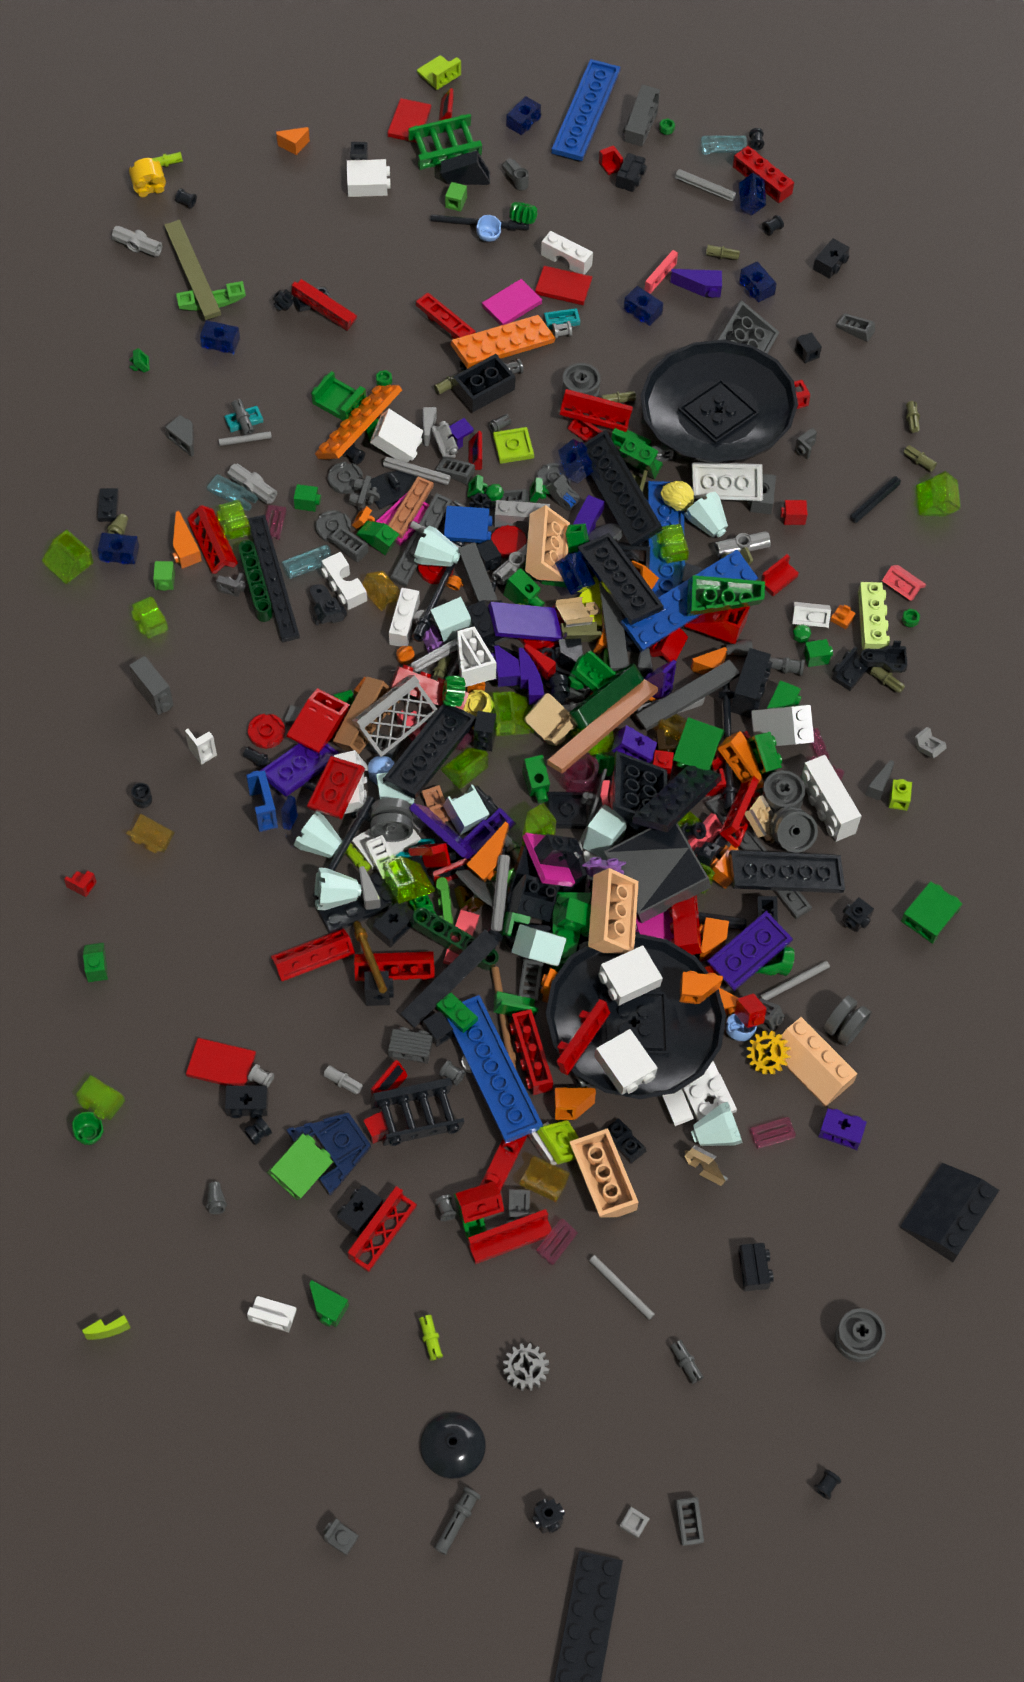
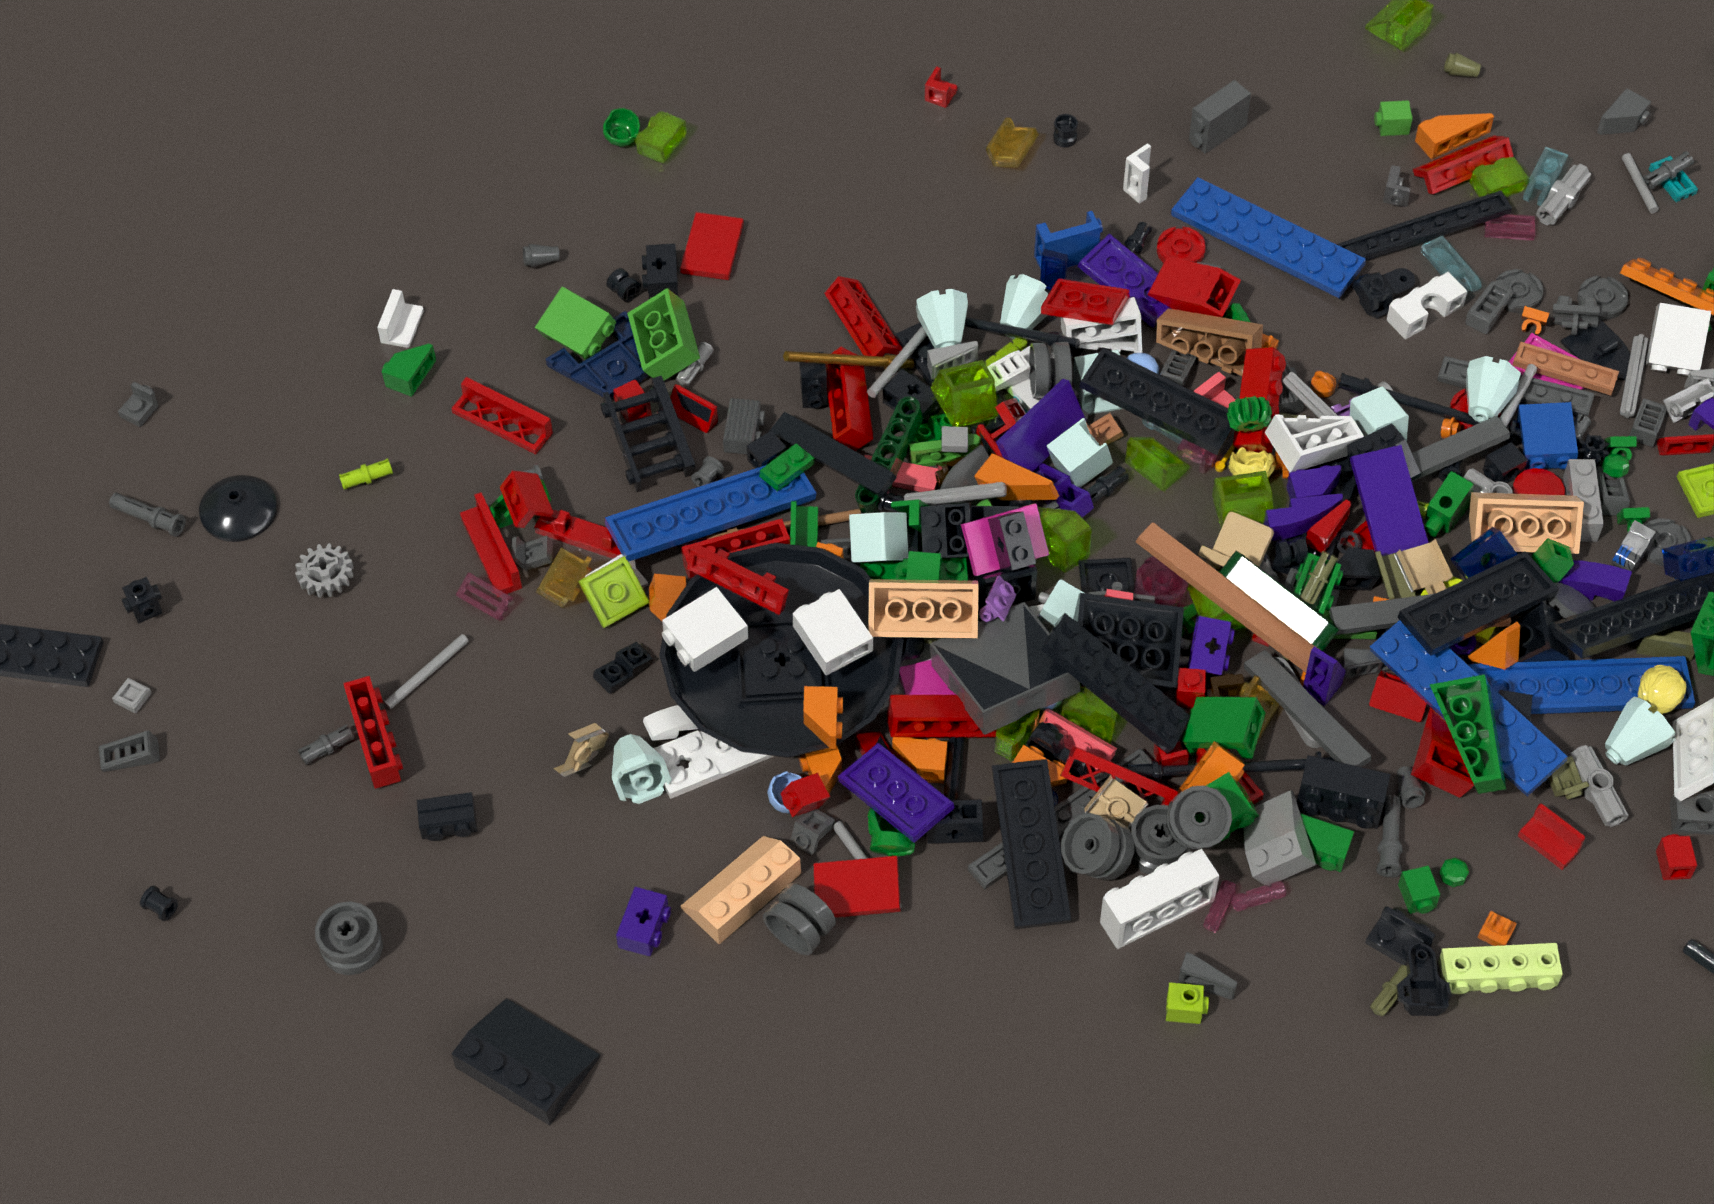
camera: 90 degrees right, 5 degrees down
(95, 962) = (835, 112): green slope -> none
(100, 1331) = (386, 173): lime slope -> none
(108, 504) = (1496, 54): black plate -> none
(118, 548) = (1425, 68): clear blue brick -> none
(150, 617) = (1327, 111): clear neon green brick -> none
(255, 587) = (1404, 208): dark green beam -> none
(261, 1076) = (694, 283): light grey bush -> none
(266, 672) = (1268, 237): none -> blue plate
(306, 498) = (1553, 253): green brick -> none
(322, 1096) = (663, 335): none -> bright green brick
(355, 454) = (1644, 299): black bush -> none
(357, 1221) = (524, 388): black brick -> none
(366, 927) = (897, 363): none -> light grey bar
(379, 536) = (1505, 336): green slope -> none
(380, 589) = (1424, 349): clear yellow bracket -> none
(385, 702) = (1222, 344): light grey fence -> none
(402, 620) = (1398, 372): white arch -> none
(445, 892) = (954, 439): none -> light grey tile
(484, 731) = (1203, 468): black brick -> none
(536, 778) = (1133, 529): green torso -> none
(593, 667) = (1318, 578): none -> olive axle
(604, 1174) = (567, 636): light nougat slope -> none
(673, 543) = (1570, 684): clear neon green brick -> none
(683, 1322) = (370, 725): none -> red brick
(693, 830) = (1074, 724): black bush -> none
(709, 661) = (1377, 745): orange slope -> none
(759, 1144) = (645, 860): clear pink tile -> none
(763, 1059) = (750, 826): yellow gear -> none
(787, 758) = (1184, 827): none -> dark grey wheel
(811, 614) = (1492, 882): white panel -> none
(814, 986) = (859, 886): none -> red tile
(857, 915) = (972, 939): black brick -> none
(903, 582) = (1582, 1017): coral panel -> none
(910, 618) = (1512, 1026): green tile -> none
(928, 744) = (1281, 1045): light grey bracket -> none
(931, 912) = (991, 1042): green panel -> none

